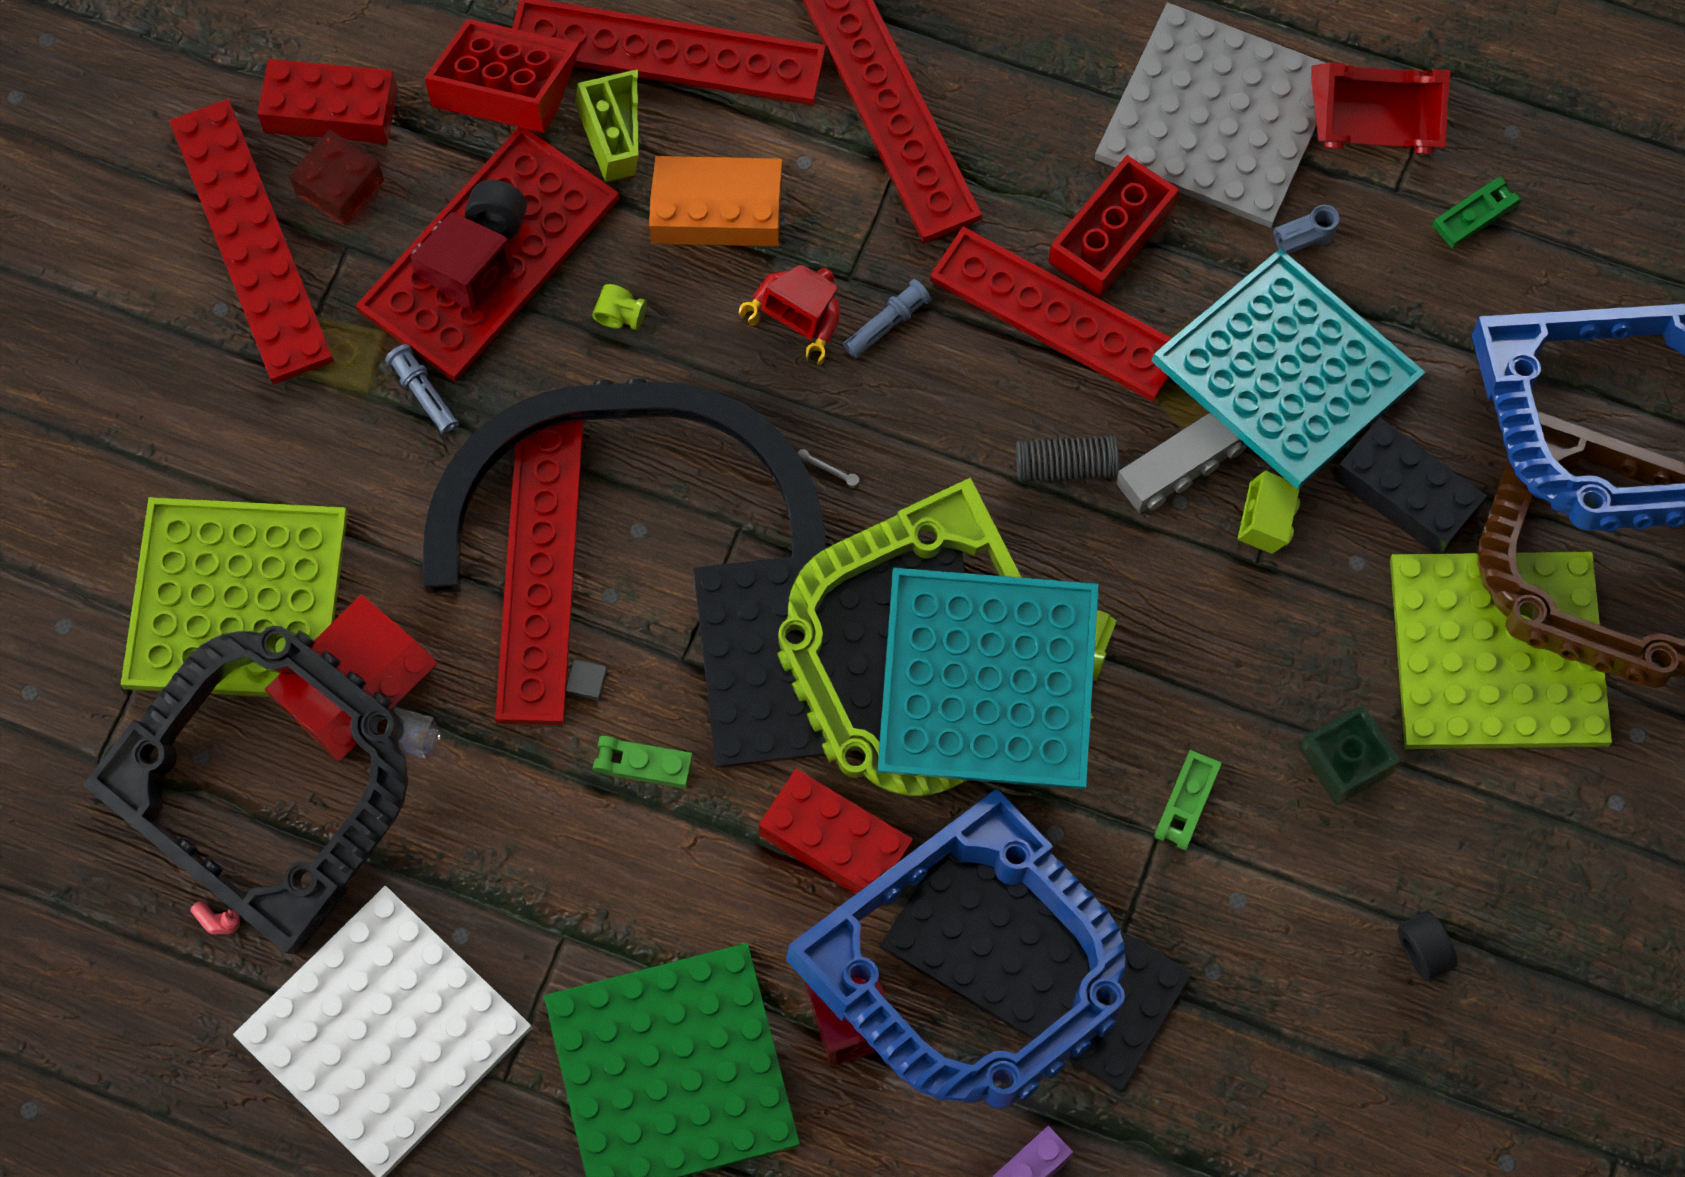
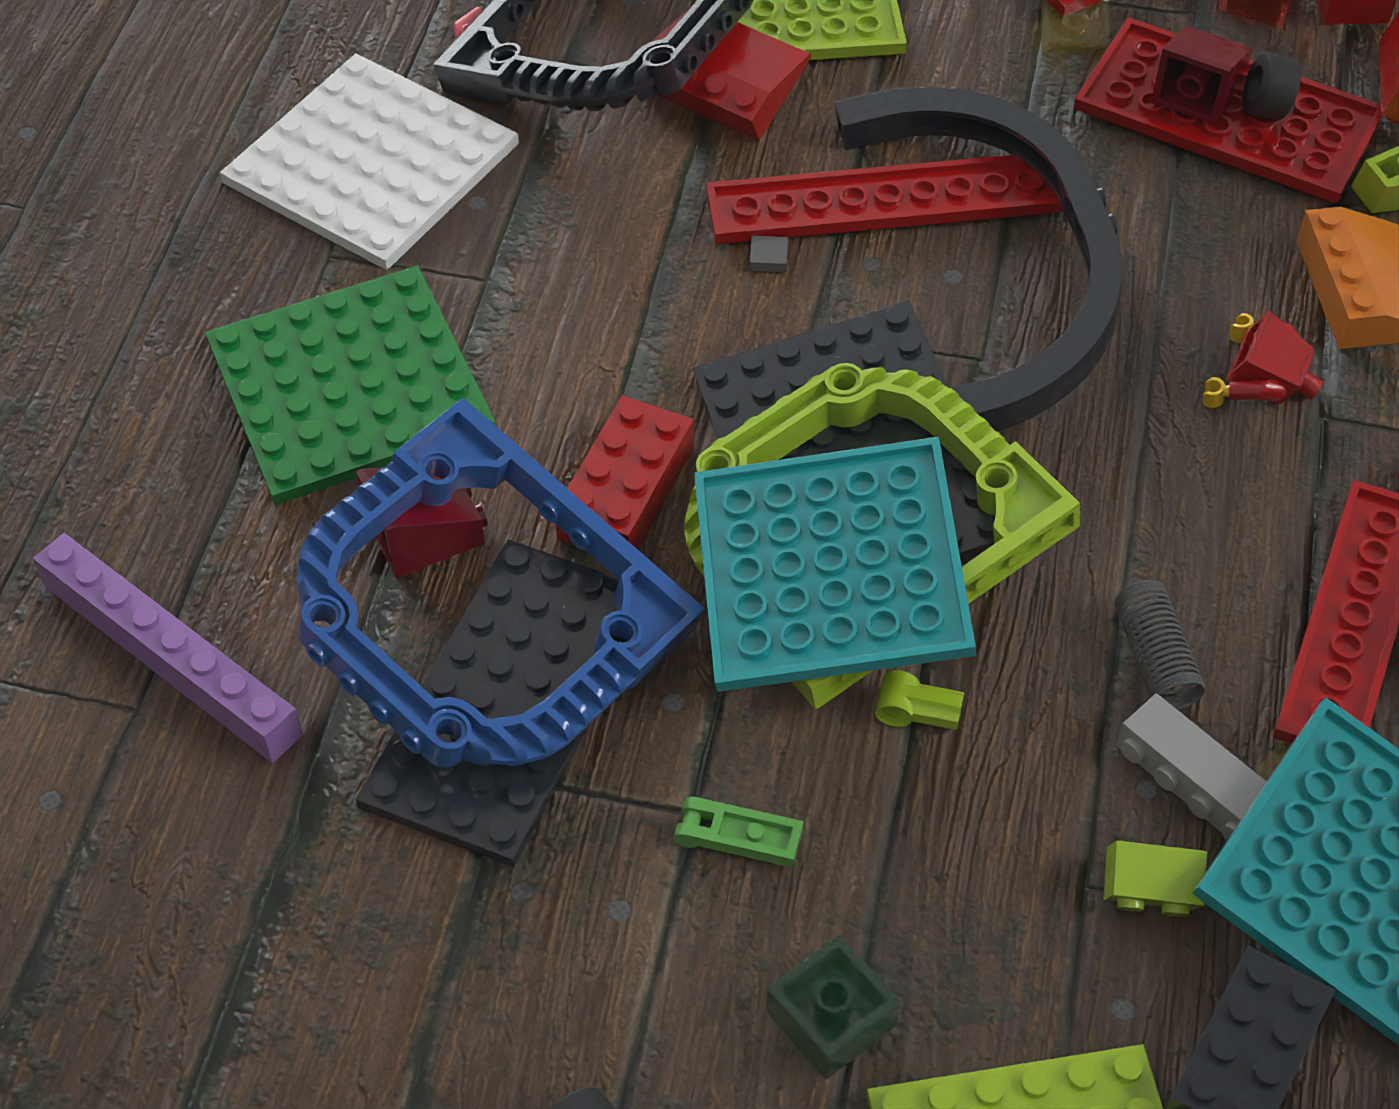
camera: 80 degrees right, 15 degrees down
(415, 378) = (1065, 74): sand blue pin -> none
(419, 732) = (679, 125): clear brick -> none
(618, 307) = (1203, 217): lime piece -> none
(643, 762) = (686, 313): bright green plate -> none
(852, 480) = (1068, 448): light grey hinge -> none
(897, 310) = (1298, 459): sand blue pin -> none

